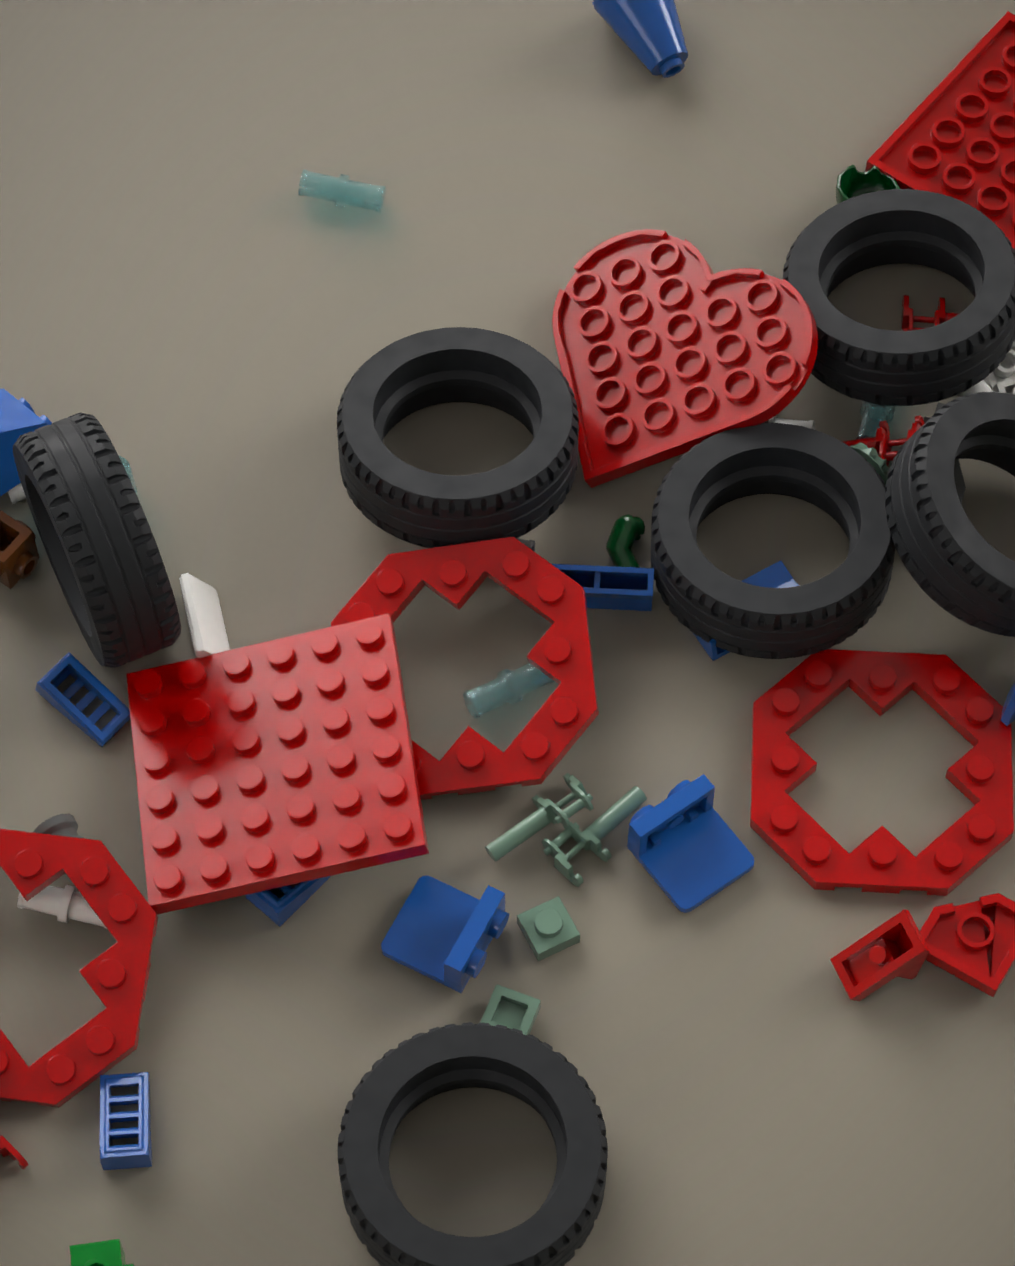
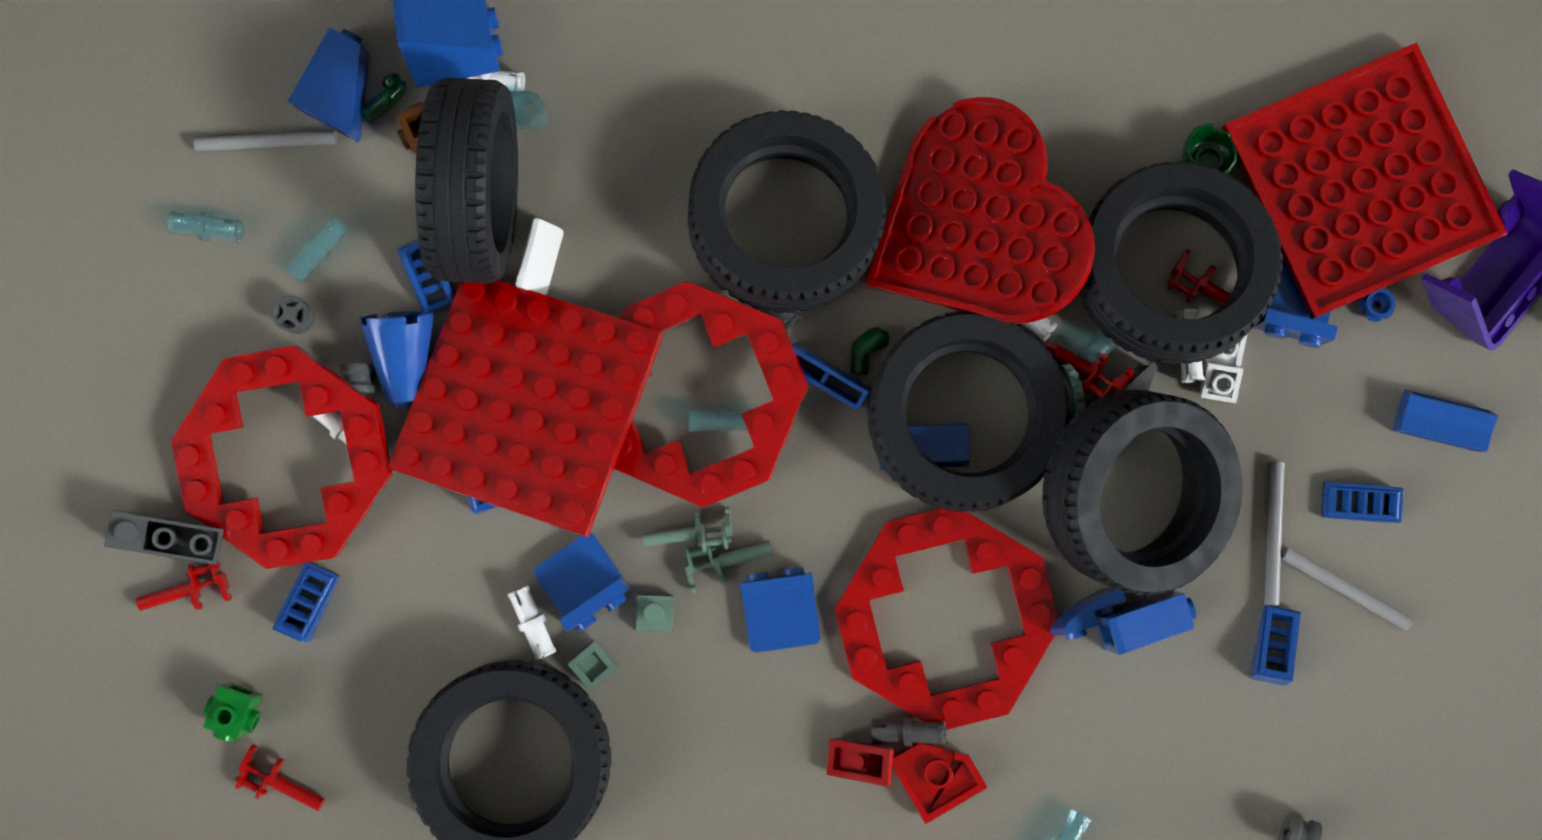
camera: 30 degrees right, 25 degrees up
(96, 784) = (399, 352): none -> blue cone
(406, 1002) = (531, 622): none -> white pin
(918, 898) = (908, 731): none -> dark grey pin

